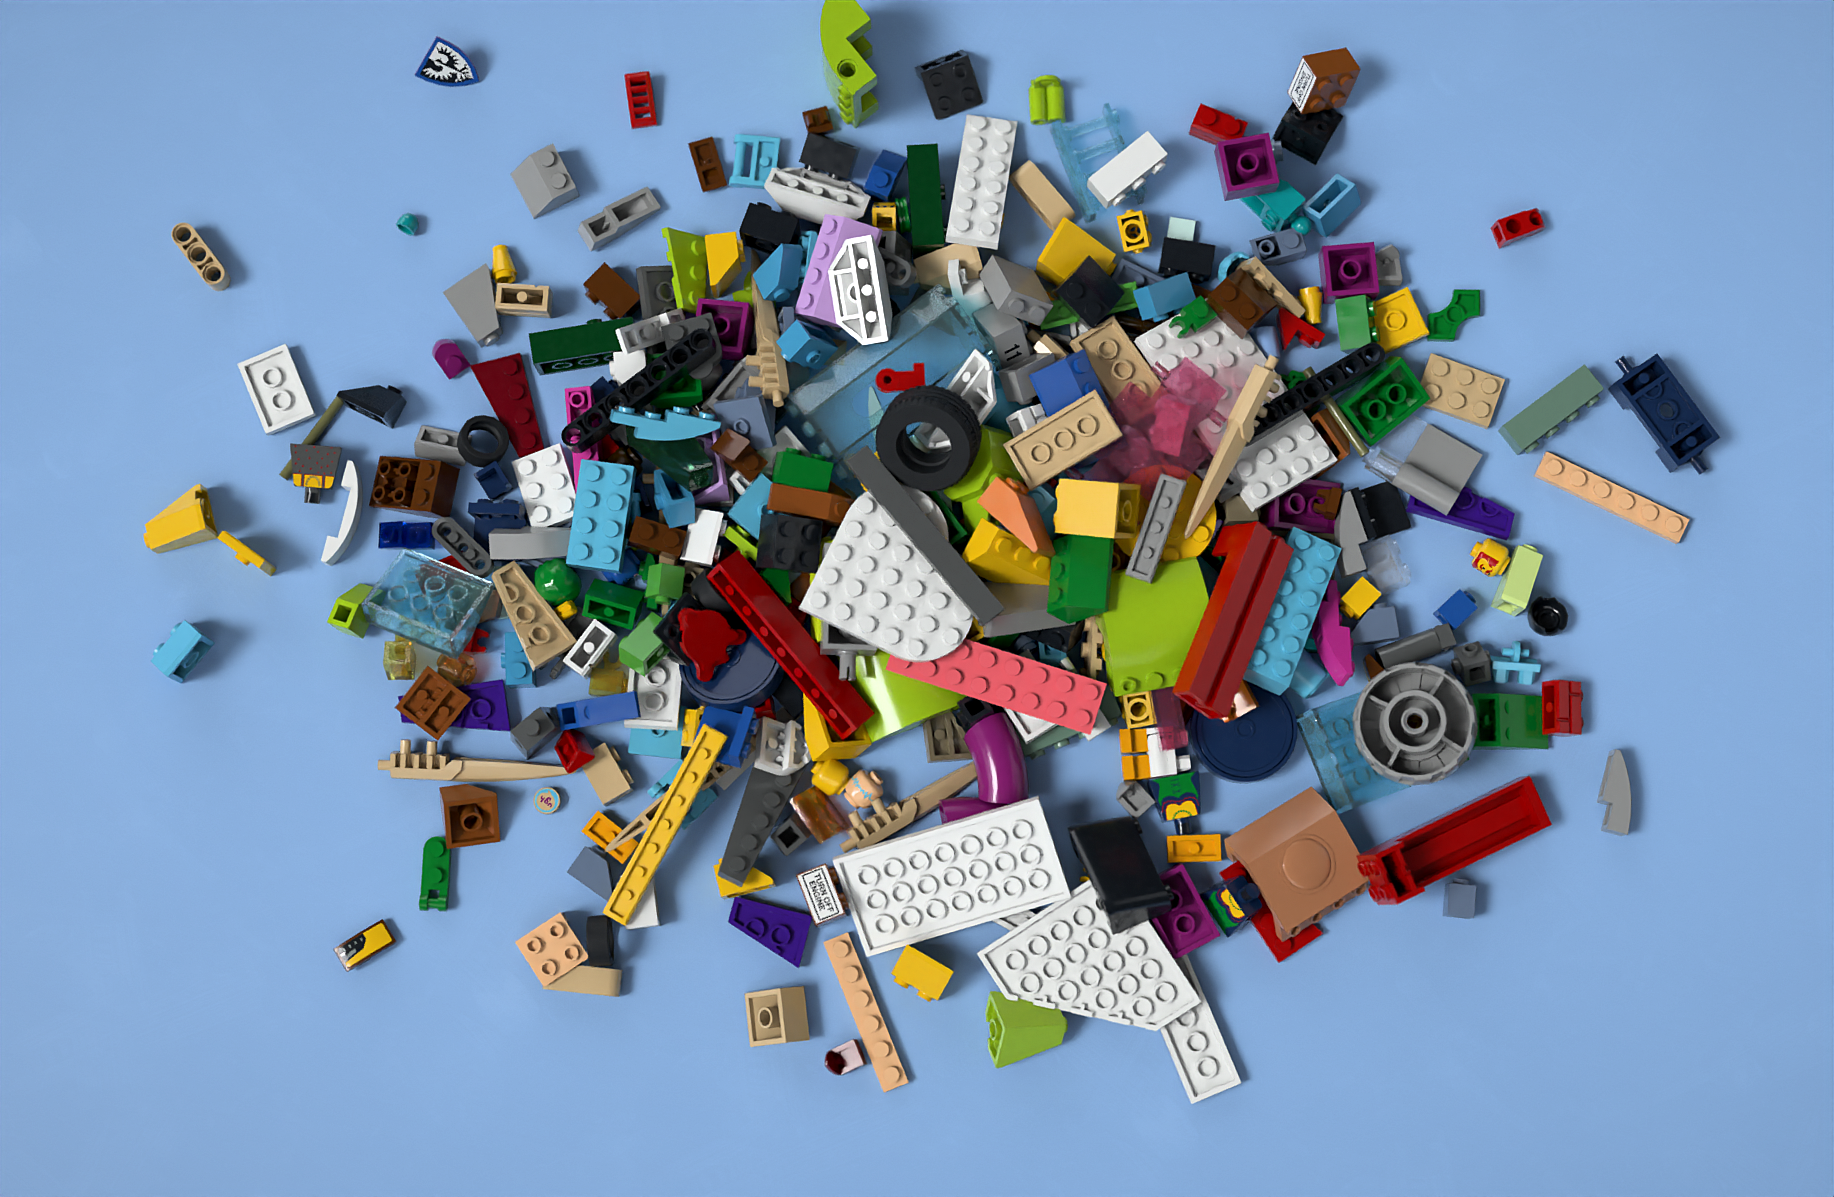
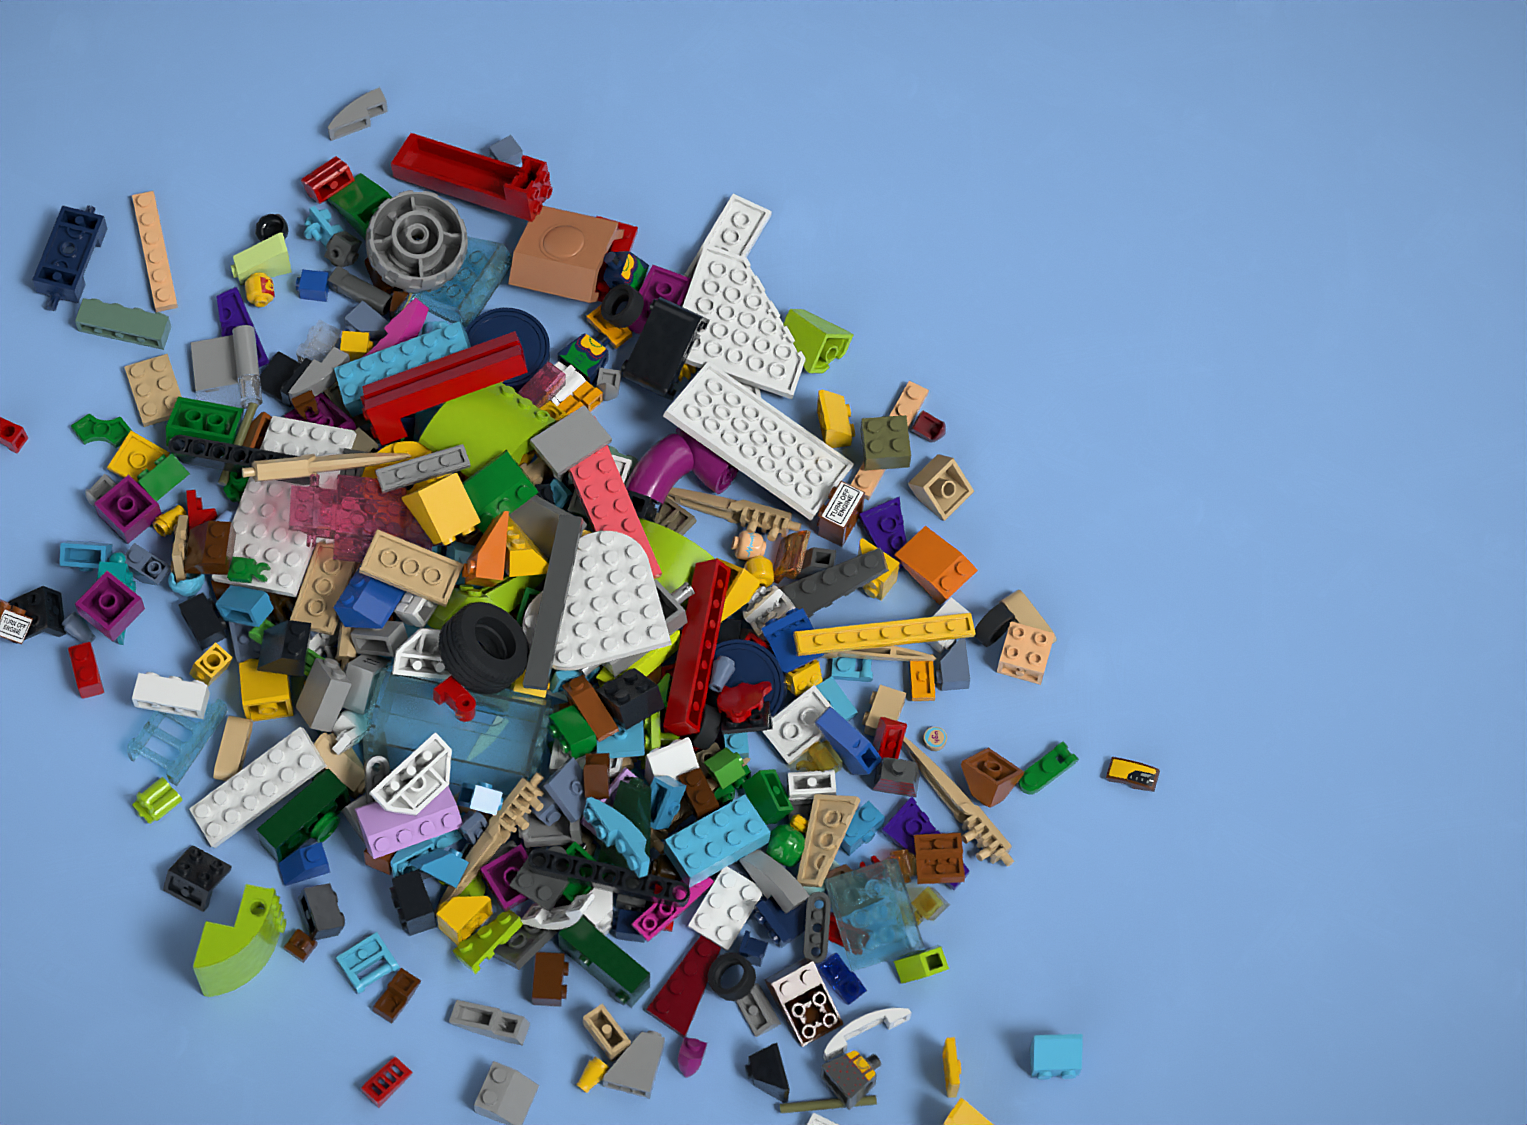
camera: 135 degrees left, 15 degrees down
(642, 648) = (774, 751): bright green brick -> none
(702, 940) = (935, 564): none -> orange slope
(746, 642) = (721, 672): none -> sand blue cone
(815, 194) = (358, 892): white wedge -> none
(856, 996) = (885, 442): none -> olive brick
(884, 216) = (336, 838): yellow leg -> none
(1077, 685) = (570, 440): none -> light grey tile
(1181, 229) = (184, 642): light aqua tile -> none
(1184, 875) = (615, 298): none -> black tyre

